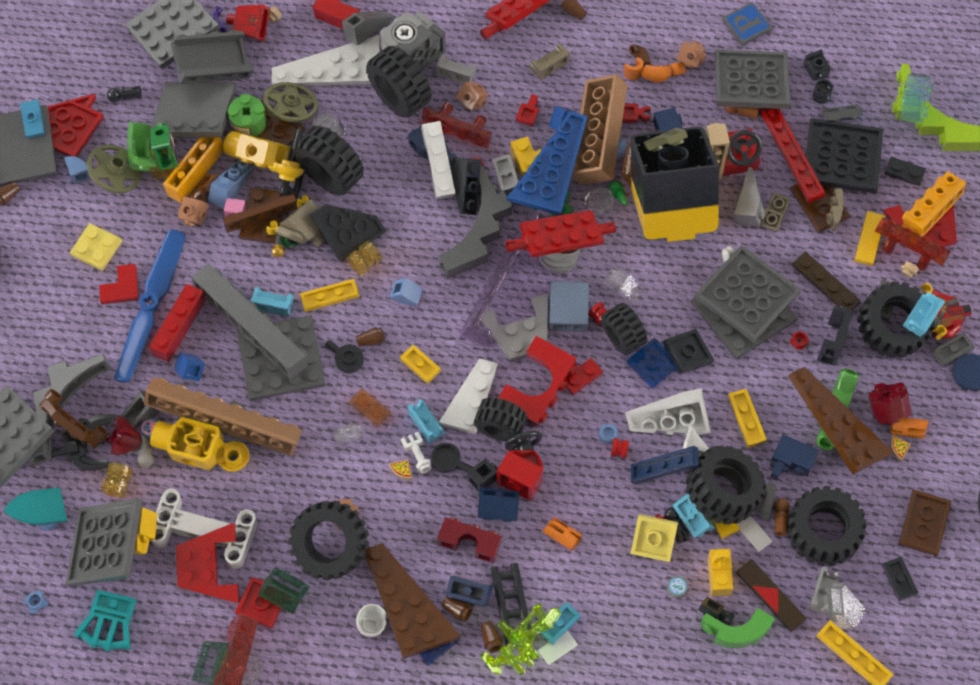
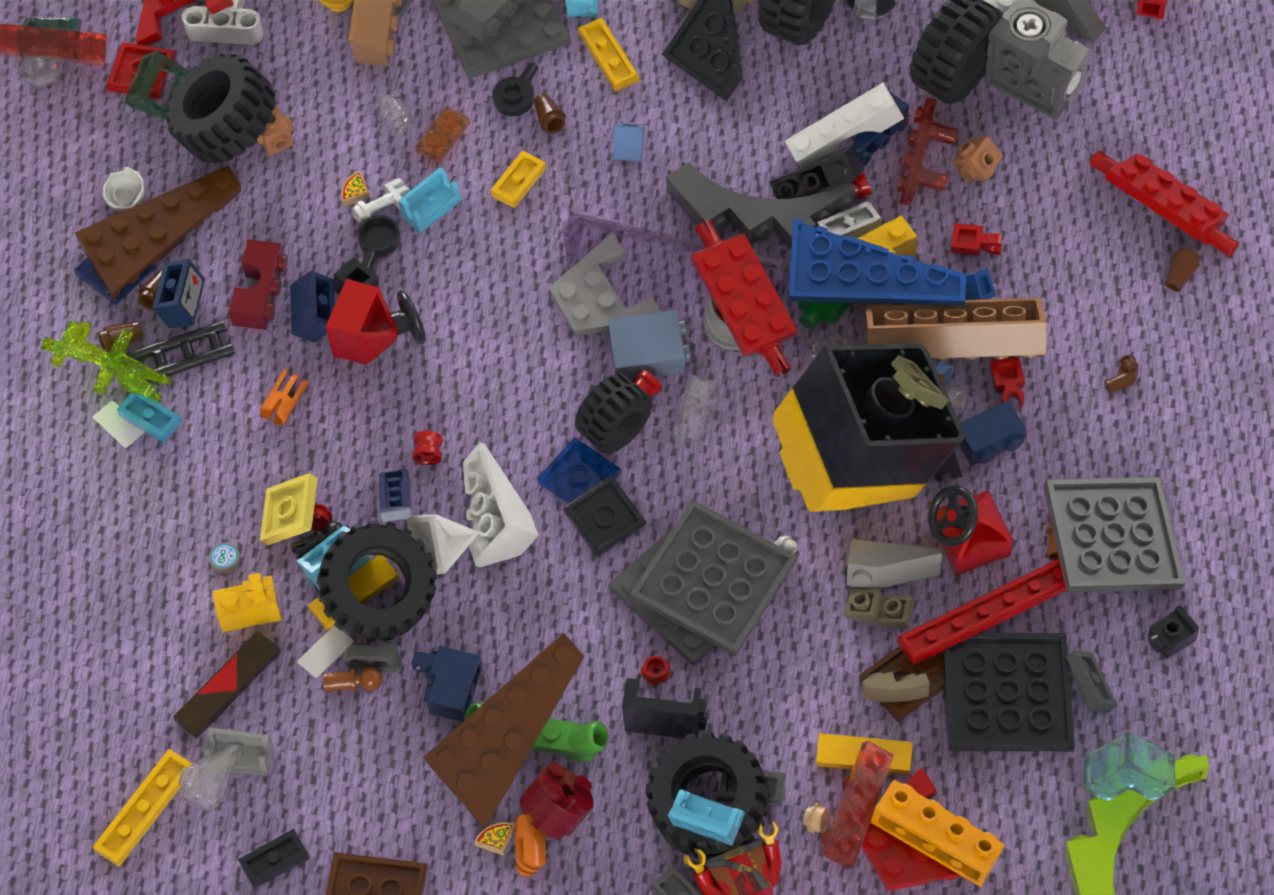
camera: 85 degrees right, 5 degrees down
(362, 259) = (667, 76): clear yellow wheel -> none
(454, 70) = (1023, 134): light grey hinge -> none
(465, 405) = (475, 252): white wing -> none
(499, 418) = (436, 279): black tyre -> none
(550, 62) = (1070, 254): dark tan hinge -> none
(559, 365) = (536, 344): red arch -> none
(583, 376) = (539, 385): red plate -> none
(607, 433) = (453, 433): medium blue tile -> none
(652, 73) = (1090, 400): orange piece -> none
(692, 60) = (1139, 441): nougat brick -> none
(716, 610) = (192, 608): black plate -> none
(719, 142) = (938, 466): tan brick -> none
(739, 636) = (165, 663): bright green arch -> none
(747, 23) = (1230, 521): tile -> none
(747, 418) = (507, 612): yellow plate -> none
(822, 91) = (1124, 639): black wheel -> none
(825, 282) = (769, 695): dark brown plate -> none
(837, 504) = (332, 701): black tyre -> none
(905, 171) = (1006, 795): black plate -> none

